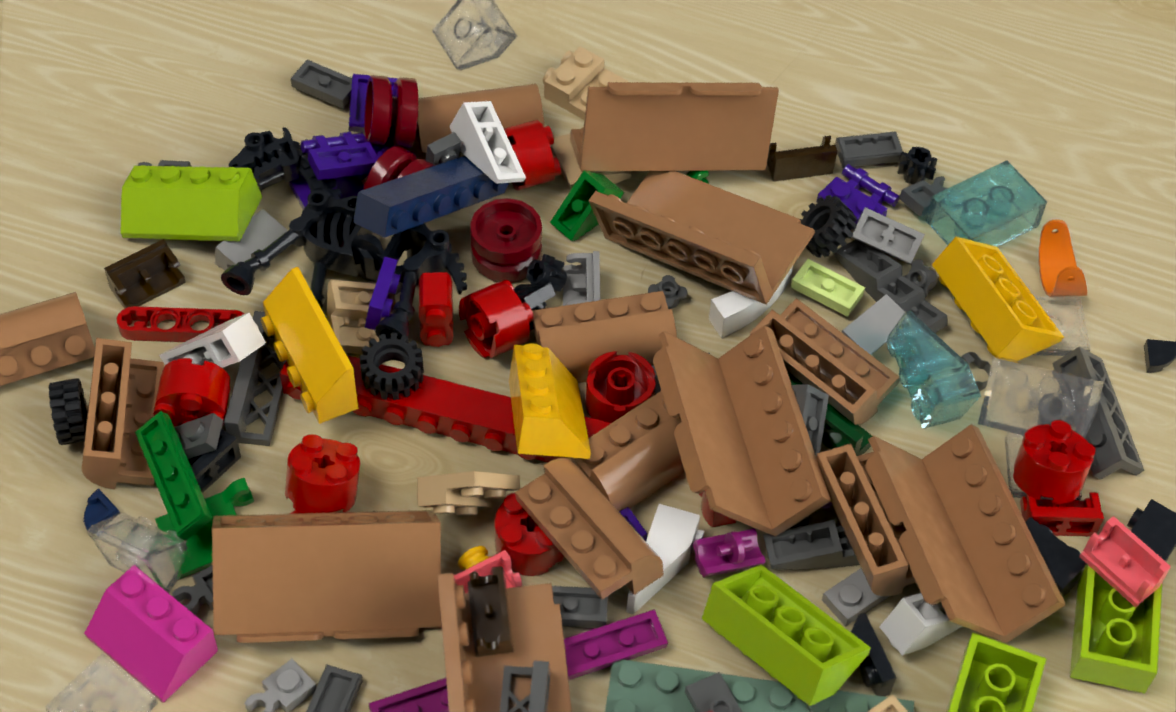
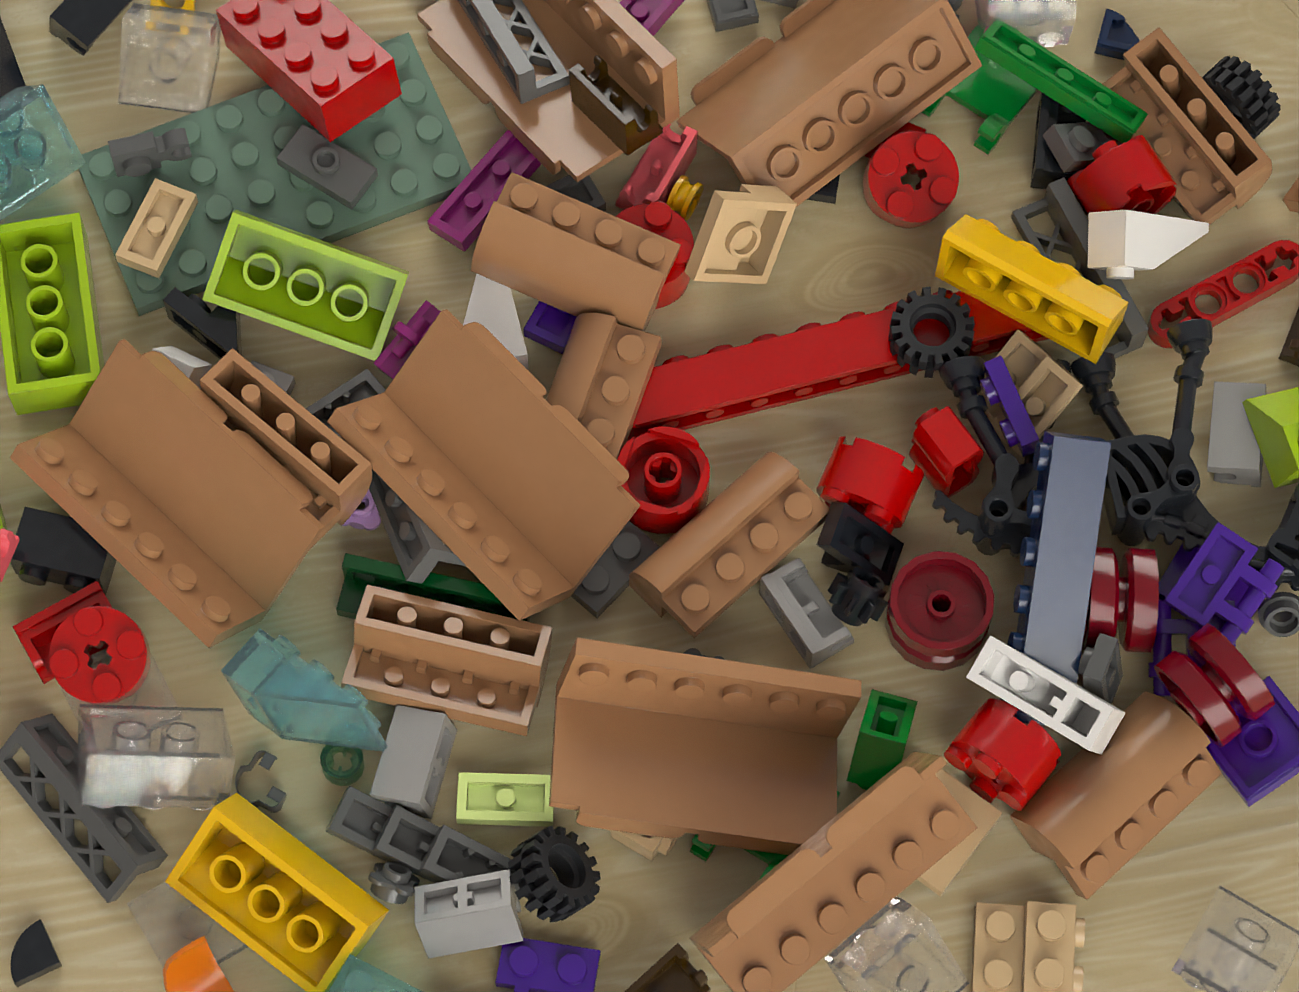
camera: 150 degrees right, 15 degrees up
(546, 405) = (717, 374): yellow slope -> none

